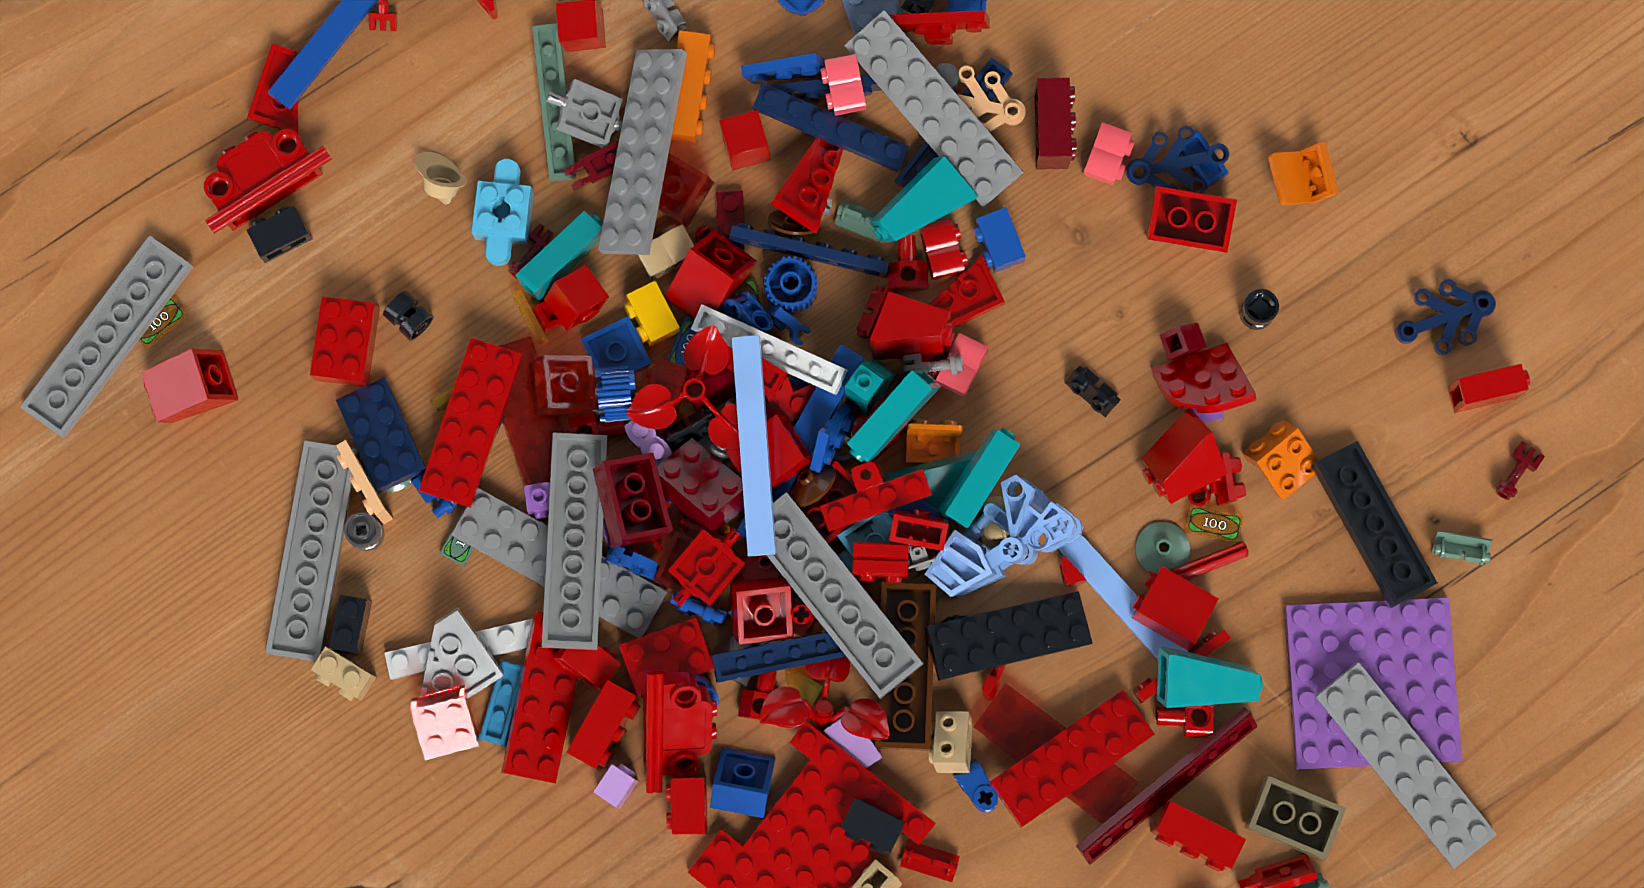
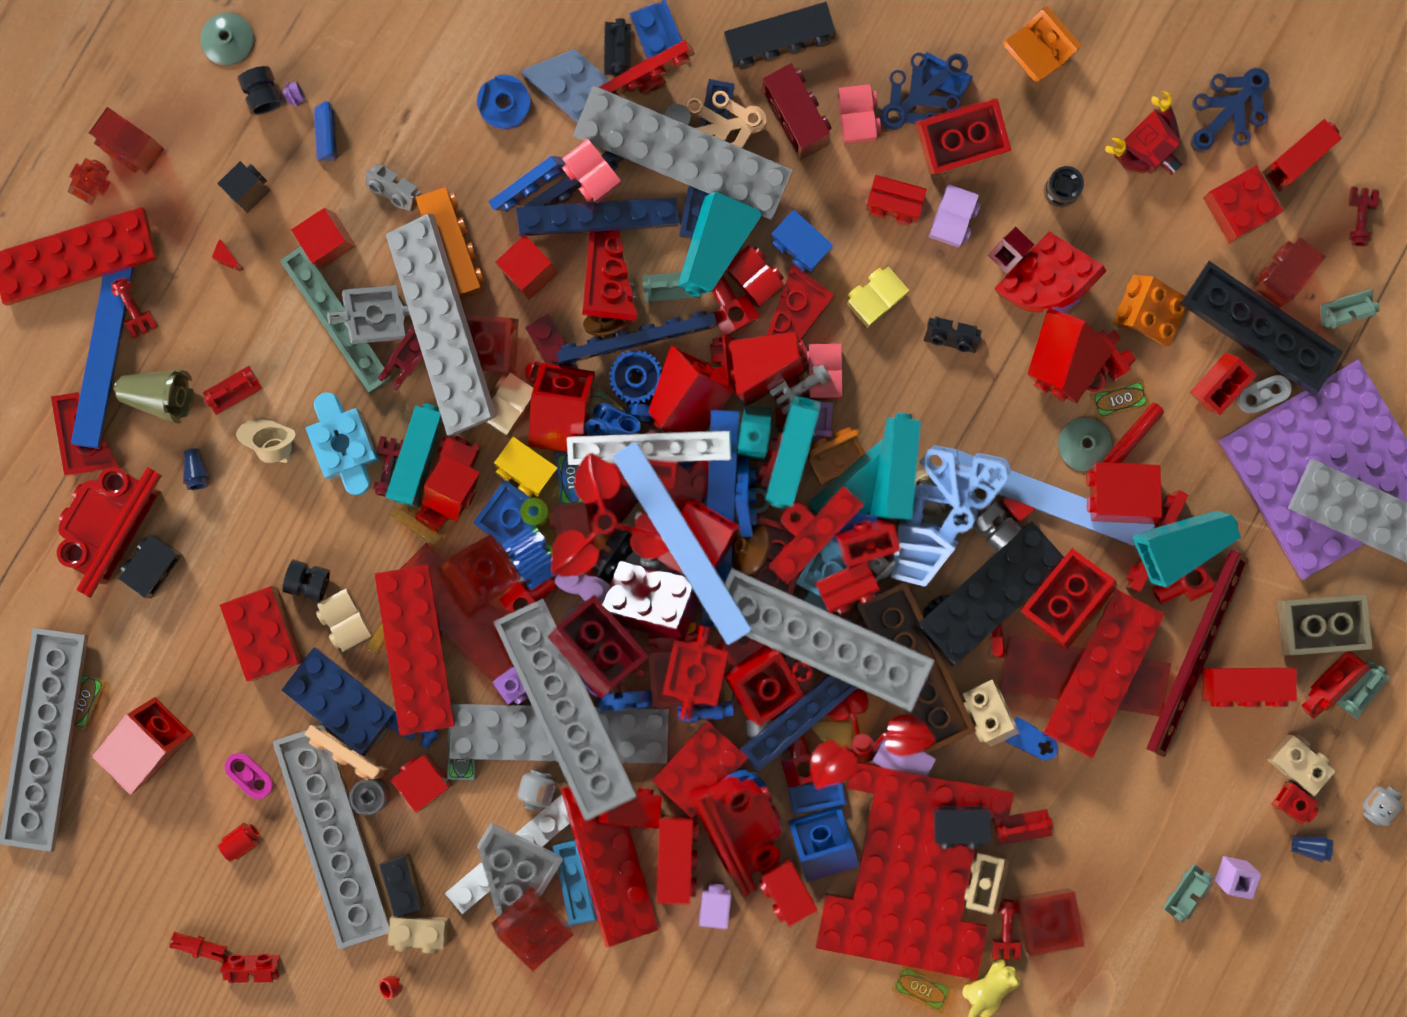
camera: 25 degrees left, 5 degrees up
(143, 588) = (198, 947): none -> red pin
(168, 624) = (238, 967): none -> red hinge
(229, 514) = (239, 842): none -> red brick
(268, 461) = (248, 777): none -> dark pink plate
(292, 710) = (390, 987): none -> red hinge
(361, 172) = (195, 472): none -> dark blue cone
(365, 87) = (157, 393): none -> olive cone
(415, 543) = (421, 782): none -> red head
(423, 367) = (344, 620): none -> tan brick
(431, 118) = (232, 390): none -> red hinge
(513, 602) = (536, 790): none -> light grey head
(603, 270) = (459, 450): none -> red brick
(639, 364) = (542, 516): none -> clear neon green brick
(759, 737) = (809, 798): none -> blue tile
(828, 319) = (687, 393): none -> red slope
(935, 406) = (823, 422): none -> medium lavender bracket
(1042, 322) = (877, 296): none -> light yellow brick
(1045, 588) = (1005, 529): none -> flat silver wheel
(1074, 51) = (779, 35): none -> black brick
(1075, 675) = (1069, 598): none -> red brick
(1102, 246) = (895, 200): none -> red brick
(1147, 286) = (954, 216): none -> lavender brick
(1313, 555) = (1223, 383): none -> red brick
(1346, 585) = (1263, 395): none -> light grey plate
(1358, 309) = (1151, 141): none -> torso
(1413, 406) = (1243, 204): none -> red brick
(1420, 487) = (1289, 272): none -> clear red brick

